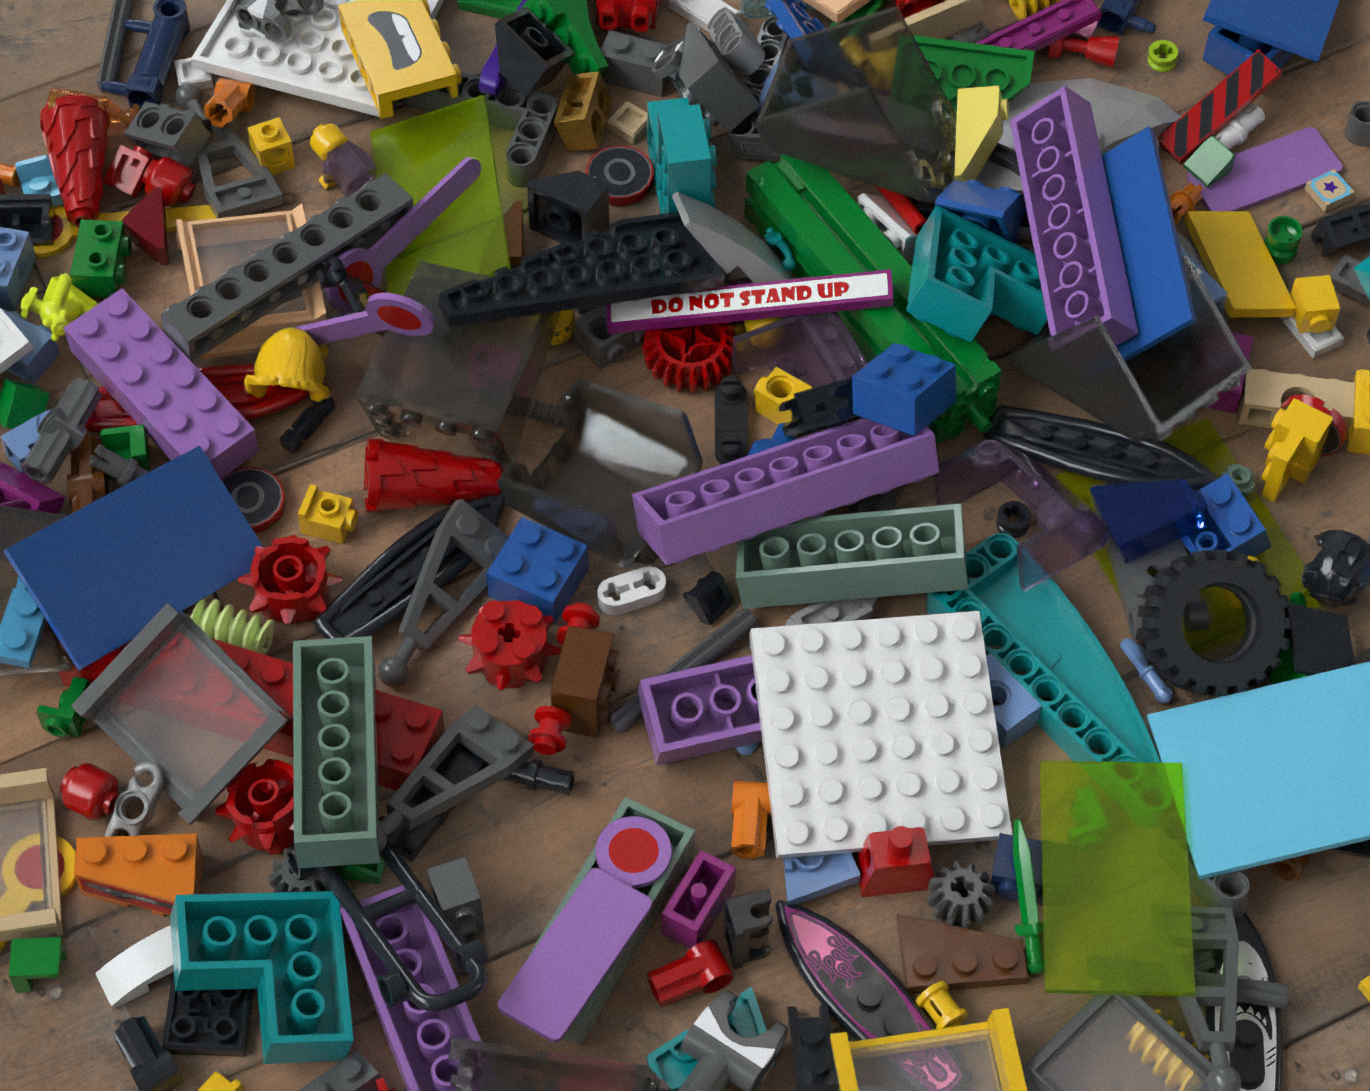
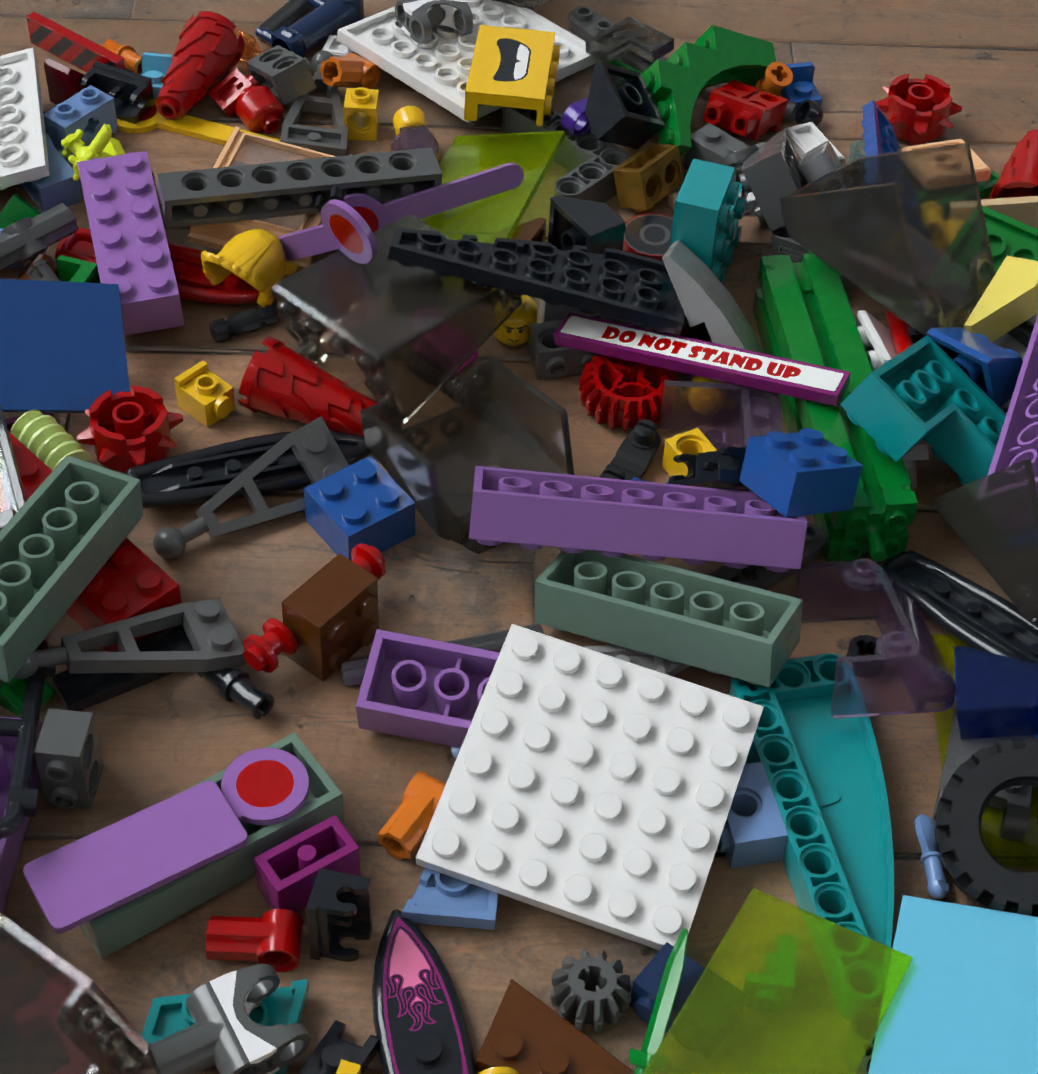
camera: 25 degrees right, 10 degrees down
(100, 257) = (164, 135): green brick -> none
(148, 226) = (216, 127): dark red slope -> none
(257, 496) = (154, 359): black tile -> none
(509, 643) = (285, 555): red brick -> none
(631, 591) = (440, 566): white beam -> none
(709, 598) = (510, 600): black tile -> none
(774, 238) = (763, 330): teal piece -> none
(895, 862) = (541, 923): red torso -> none

